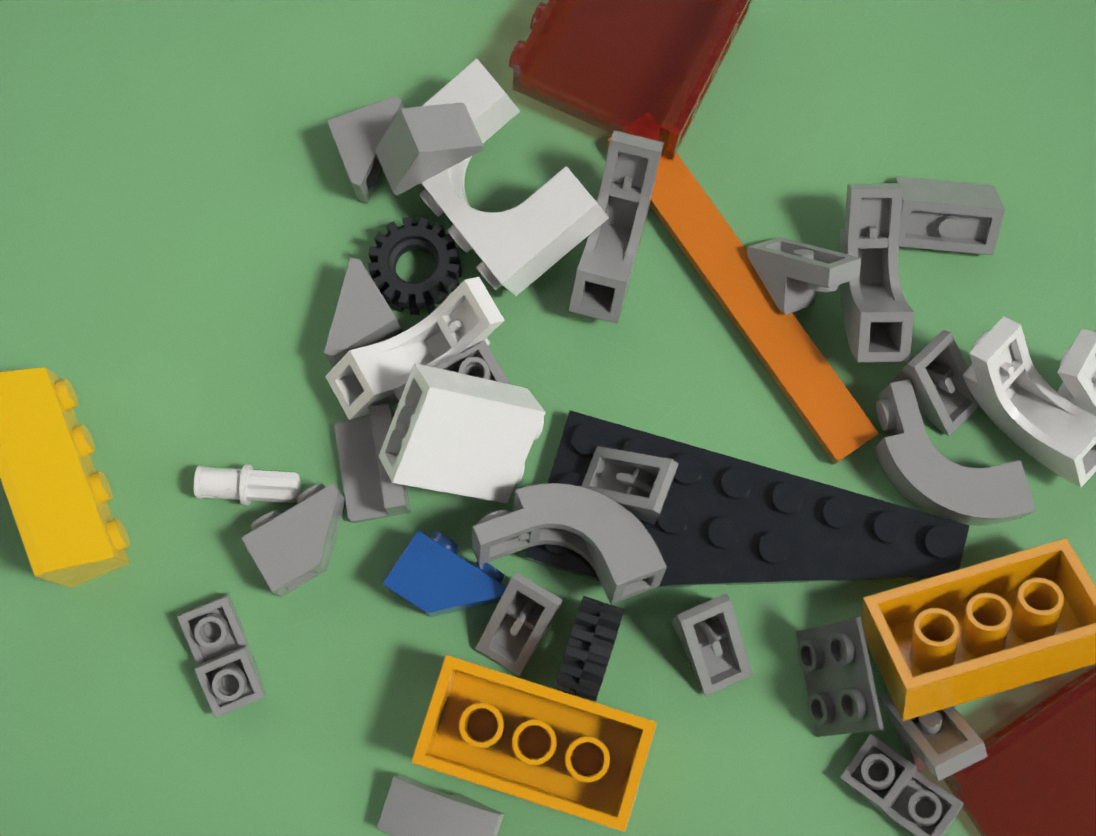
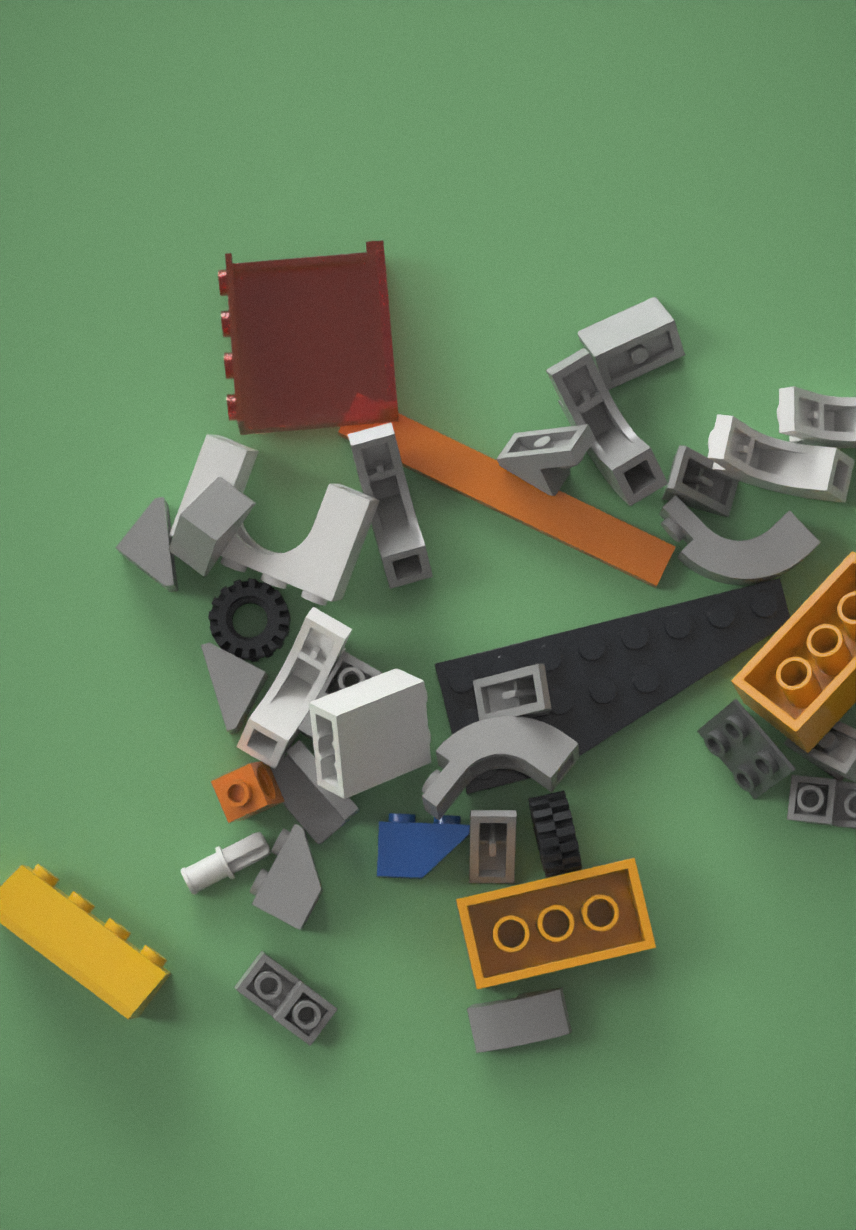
camera: 30 degrees left, 5 degrees up
(308, 425) = (247, 791): none -> orange brick
(713, 644) = (642, 777): light grey slope -> none

